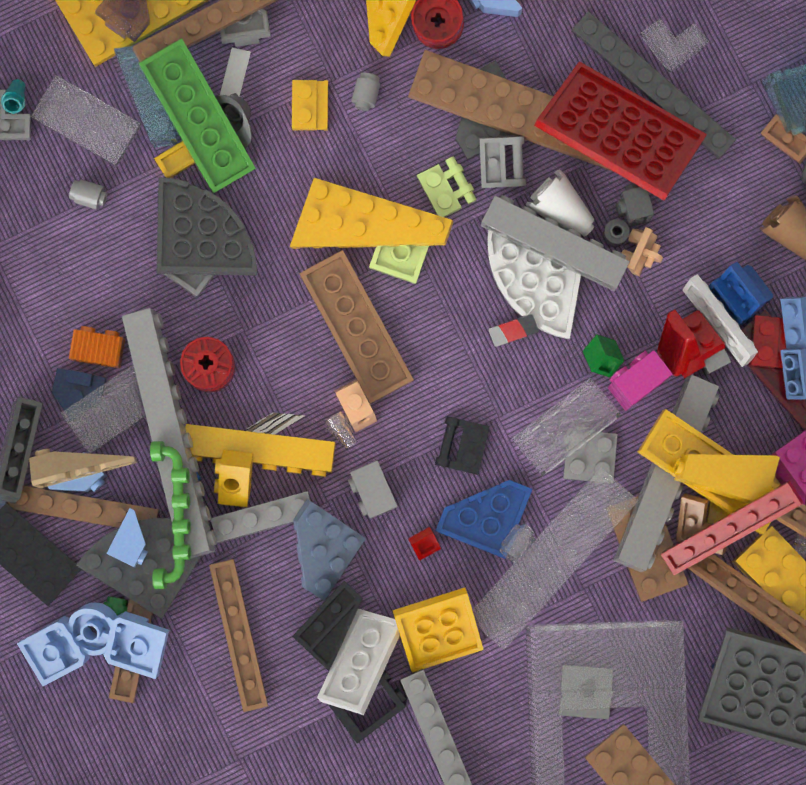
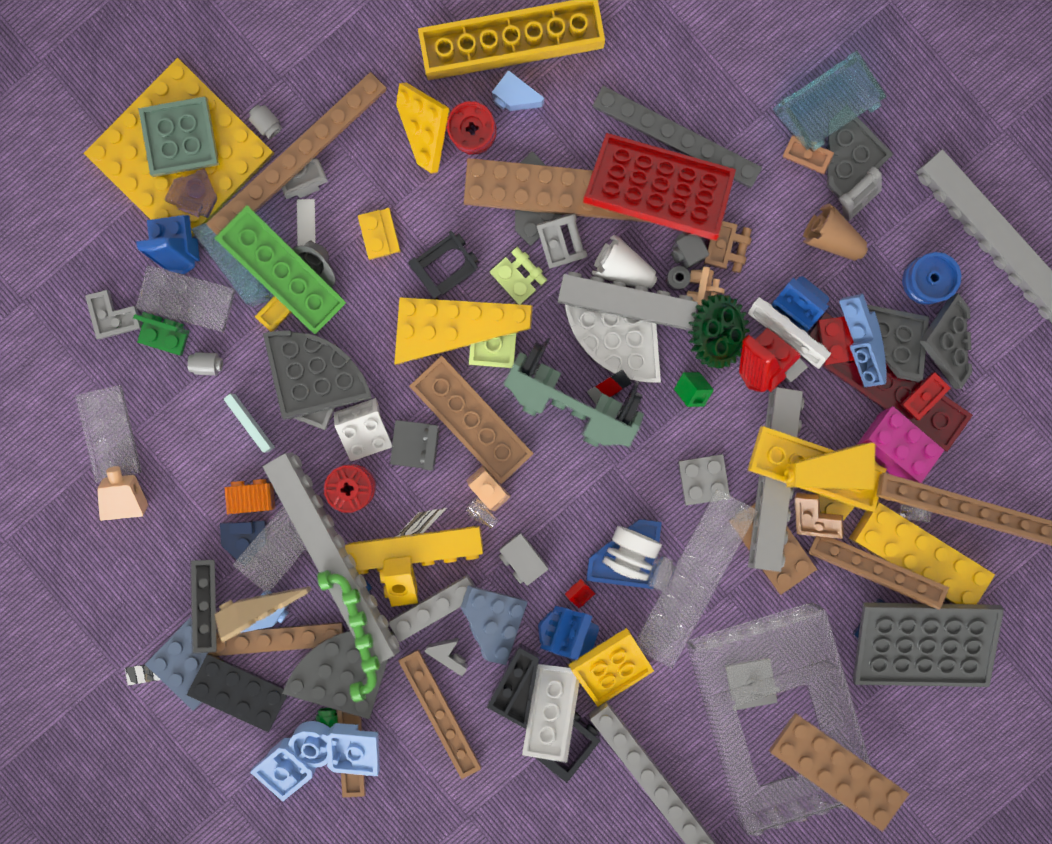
camera: 20 degrees left, 5 degrees up
(14, 97) = (115, 296): teal cone -> none
(50, 151) = (162, 335): none -> green bracket
(88, 59) = (171, 244): none -> blue piece
(117, 268) = (249, 423): none -> light aqua tile
(129, 541) = (322, 663): light blue slope -> none
(236, 308) = (362, 430): none -> white bracket
(259, 568) = (442, 652): none -> light grey slope
(289, 338) = (415, 445): none -> dark grey bracket
(366, 91) = (425, 208): light grey brick -> none
(381, 134) = (450, 242): none -> black panel
(400, 580) = (567, 633): none -> blue piece
(434, 306) = (601, 423): none -> sand green piece
(470, 448) = (598, 499): black plate -> none
(491, 509) = (632, 553): none -> white wheel
(566, 427) = (677, 460): clear plate -> none
(637, 285) = (718, 331): none -> dark green gear
(643, 377) = (733, 405): dark pink brick -> none
(670, 211) = (720, 250): none -> medium nougat plate
(673, 50) = (685, 101): clear plate -> none
(732, 527) = (849, 515): plate -> none

